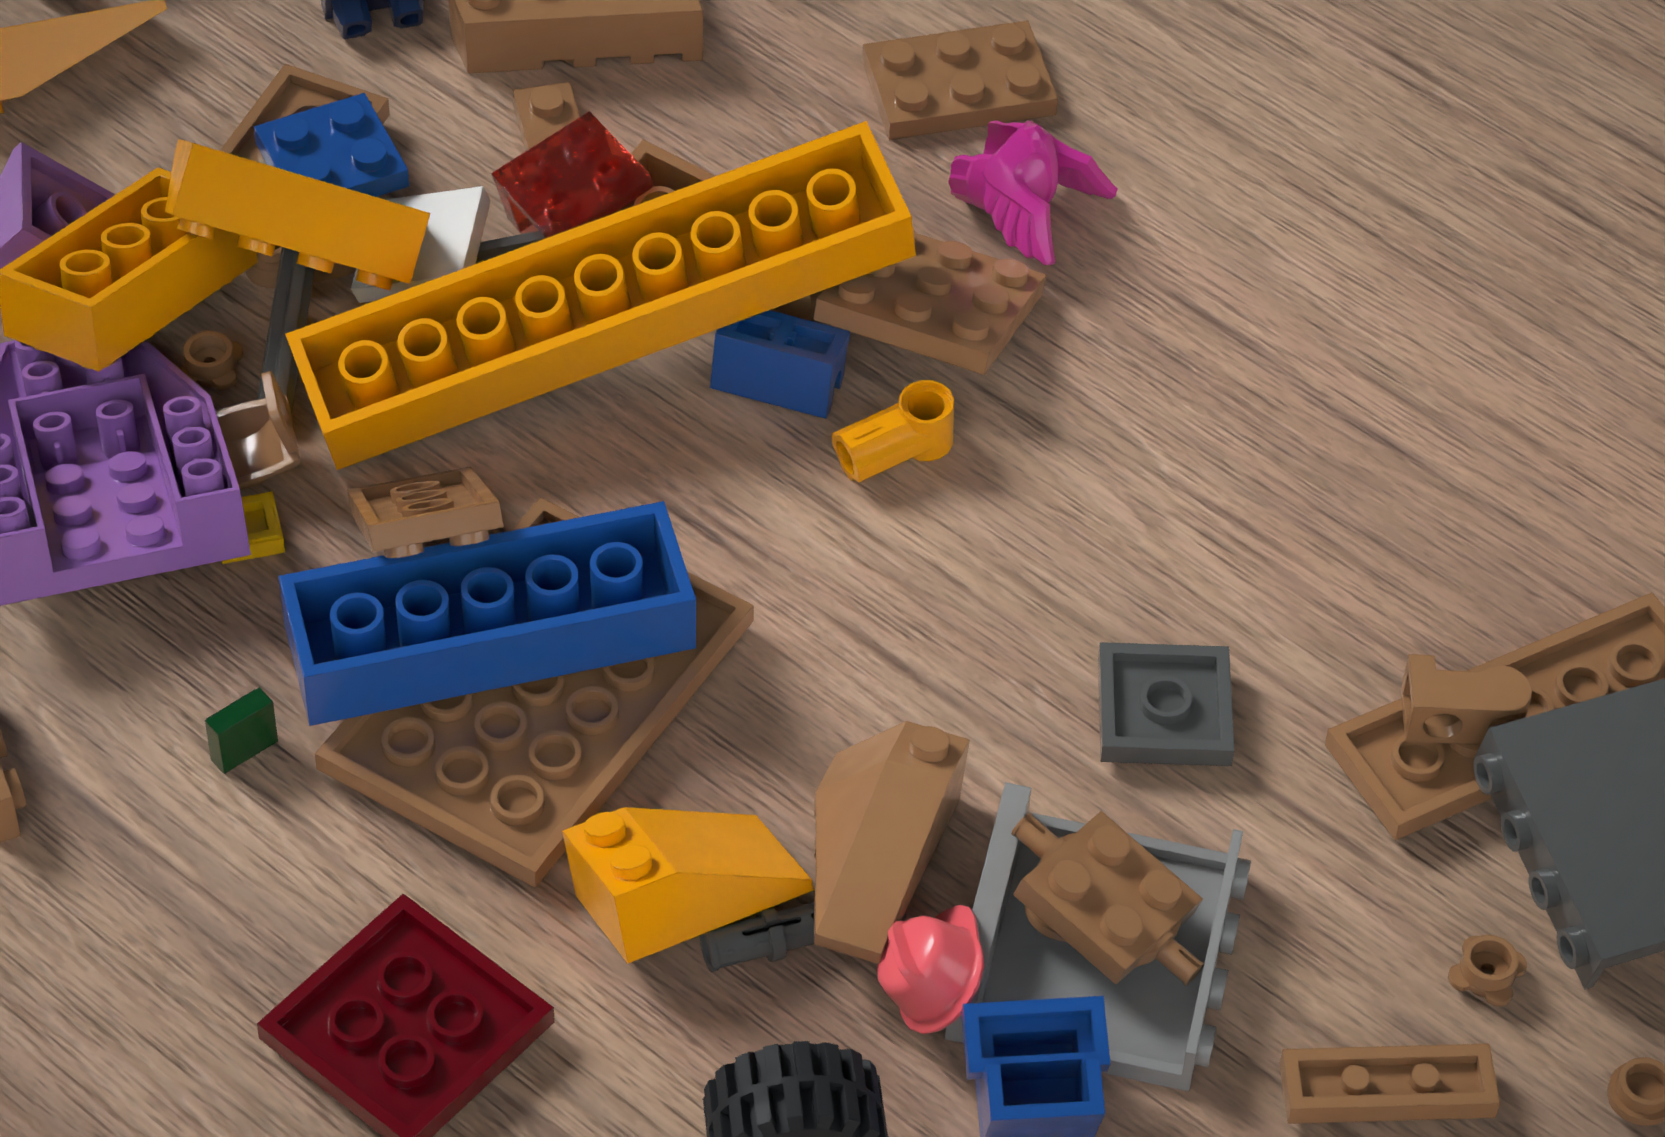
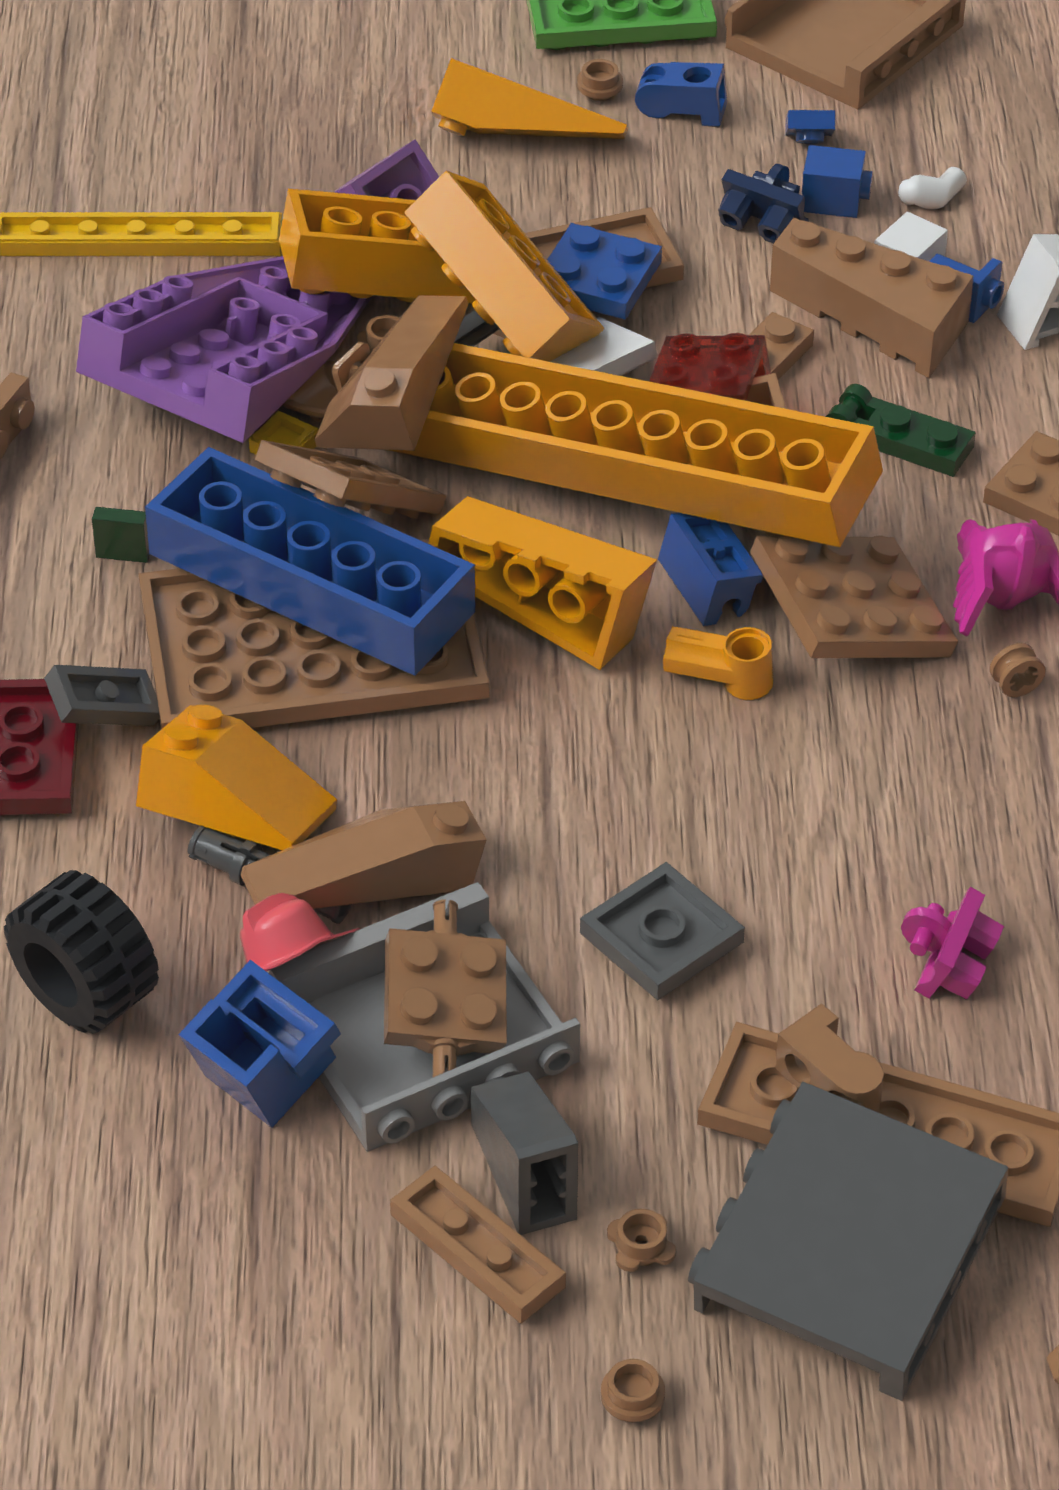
camera: 50 degrees right, 5 degrees down
(338, 386) = (396, 384): none -> medium nougat wedge
(455, 890) = (103, 695): none -> dark grey plate
(712, 464) = (550, 577): none -> light orange wedge
(752, 124) = (907, 432): none -> dark green plate
(1123, 263) = (1017, 670): none -> medium nougat bush
(1330, 968) = (527, 1151): none -> dark grey slope
(1377, 529) = (966, 928): none -> dark pink hips

